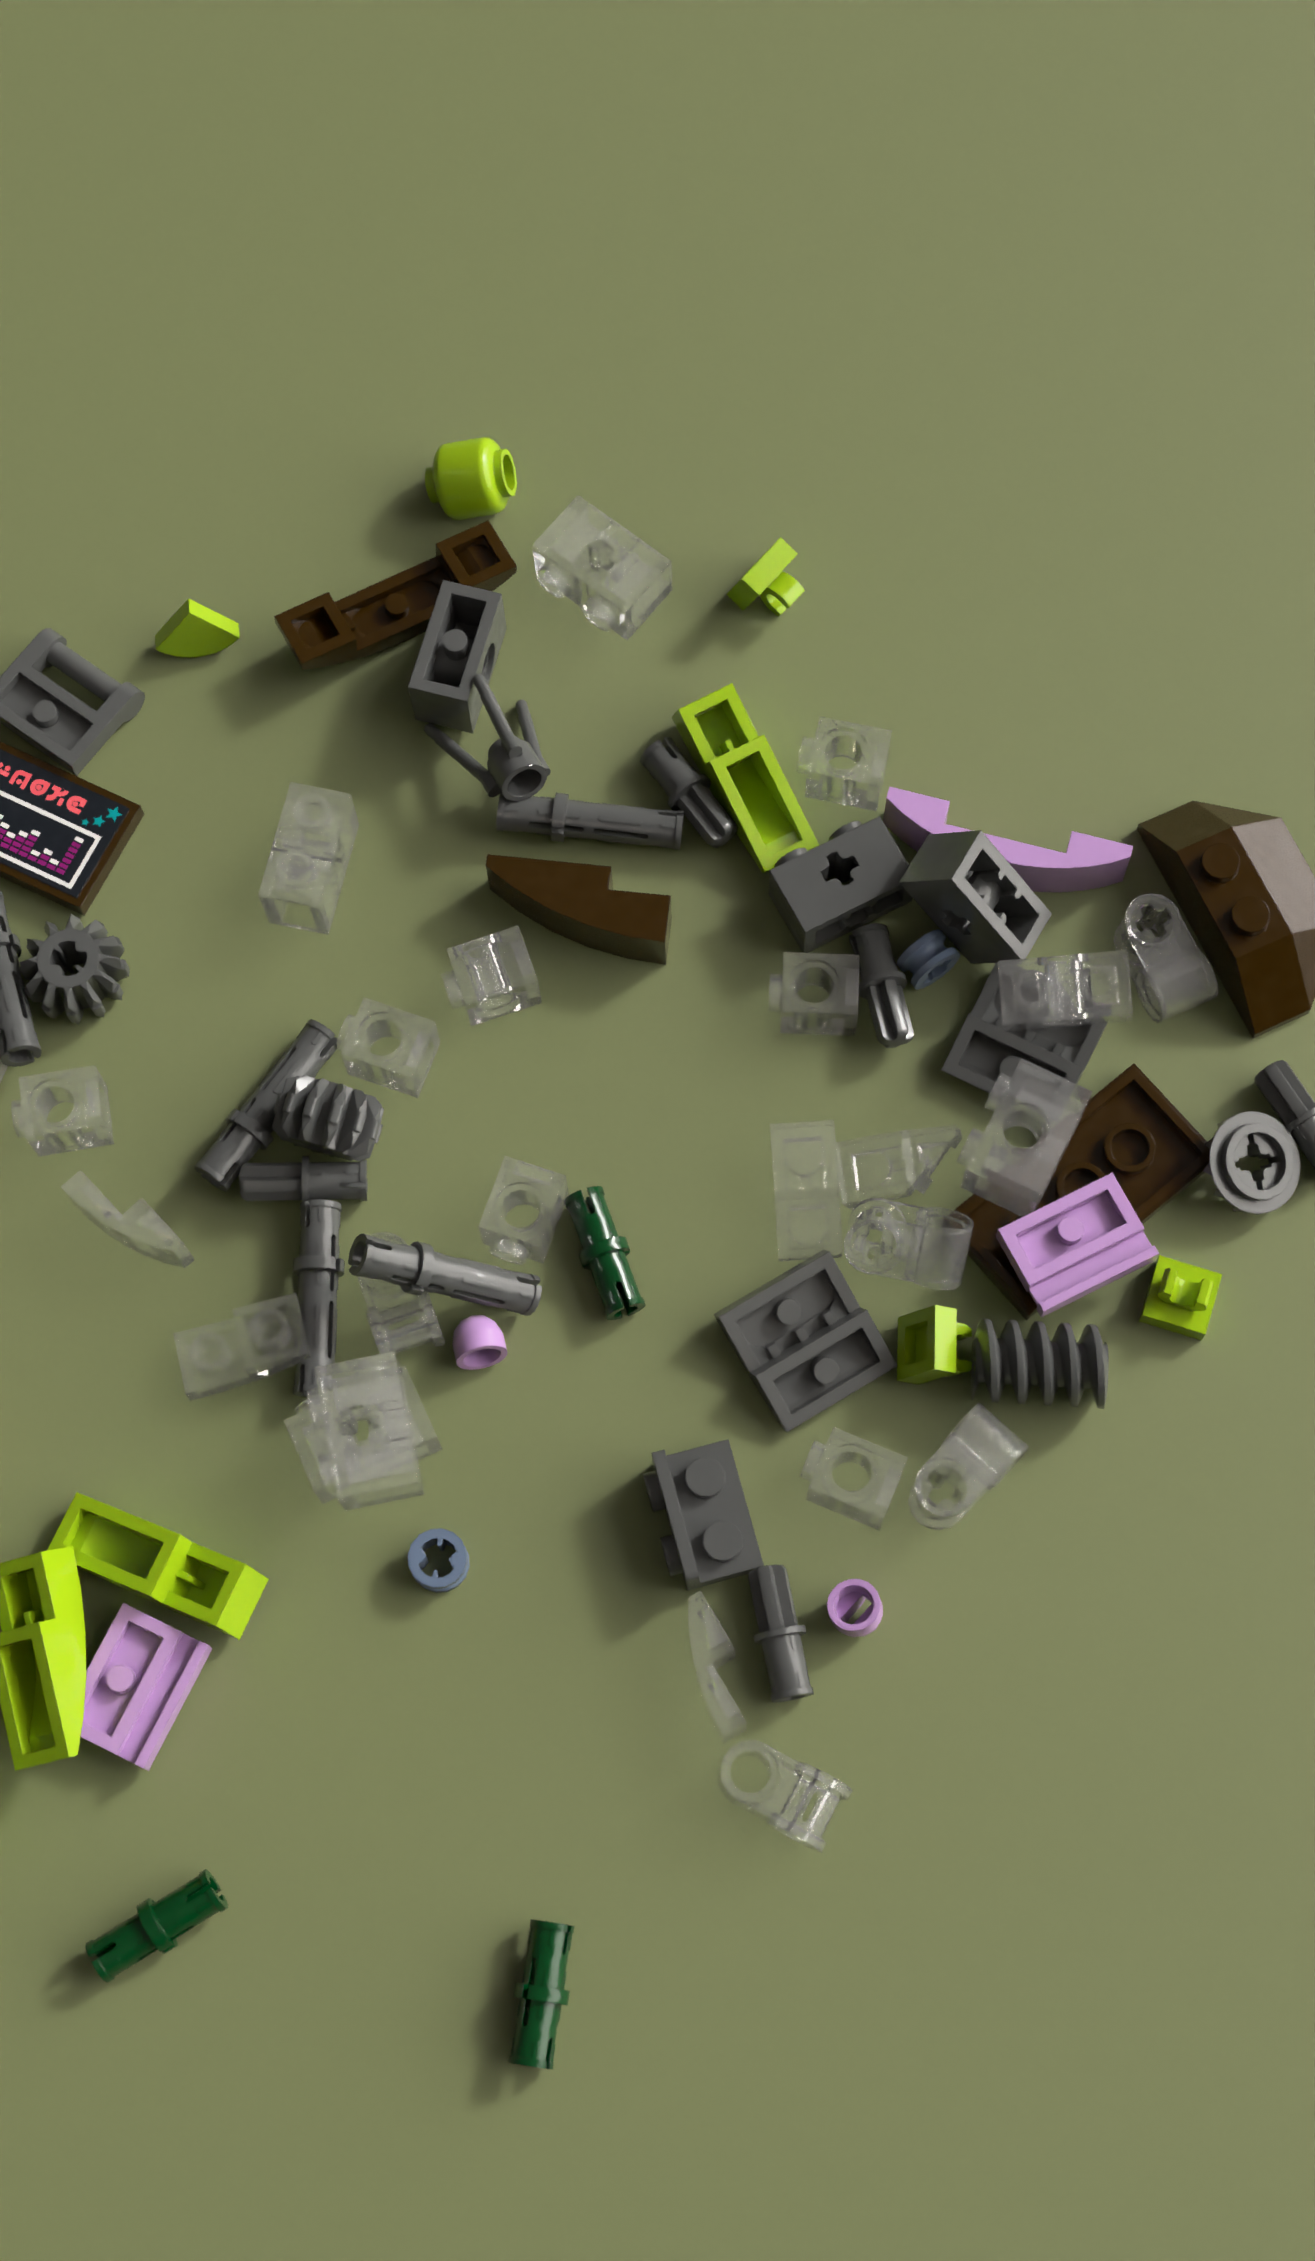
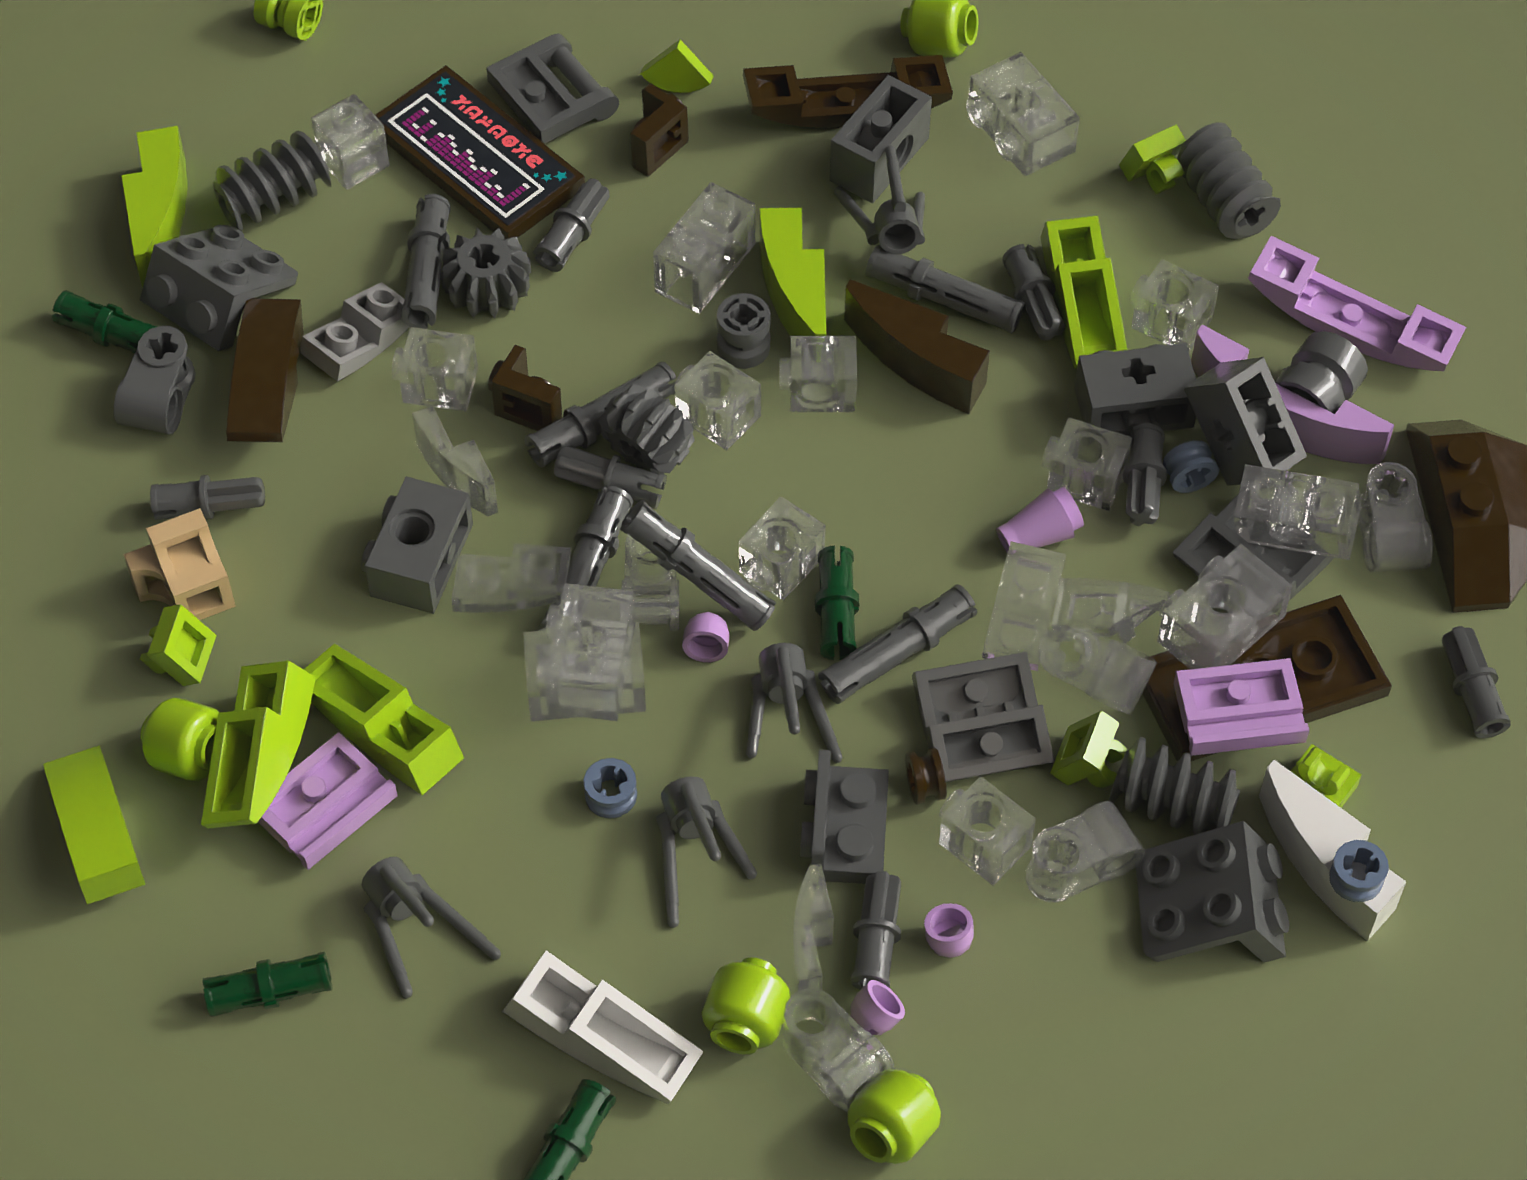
camera: 15 degrees right, 15 degrees down
(140, 1373) = (418, 572): none -> dark grey brick
(148, 872) = (571, 225): none -> dark grey axle
(178, 1117) = (523, 398): none -> dark brown bracket
(206, 721) = (660, 130): none -> dark brown bracket
(255, 1769) = (399, 895): none -> dark grey plant
(392, 963) = (743, 330): none -> dark grey wheel
(420, 862) = (792, 273): none -> lime slope
(532, 1852) = (602, 1029): none -> white slope
(535, 1563) = (693, 816): none -> dark grey plant
(580, 1366) = (785, 680): none -> dark grey plant
(675, 1777) = (745, 1006): none -> lime head
(695, 1270) = (916, 631): none -> dark grey pin
(770, 1434) = (925, 776): none -> dark brown bush
(792, 1081) = (1044, 521): none -> lavender cone
(810, 1726) = (877, 1008): none -> lavender hinge
(852, 590) = (1227, 182): none -> dark grey piece
(871, 1848) = (893, 1116): none -> lime head
(1035, 802) = (1325, 370): none -> dark grey wheel
(1042, 710) = (1376, 329): none -> lavender slope
(1113, 1474) = (1212, 894): none -> dark grey bracket
(1217, 1380) = (1310, 834): none -> white slope
(1261, 1138) = (1433, 682): gear -> none
(1279, 1423) = (1341, 871): none -> sand blue bush

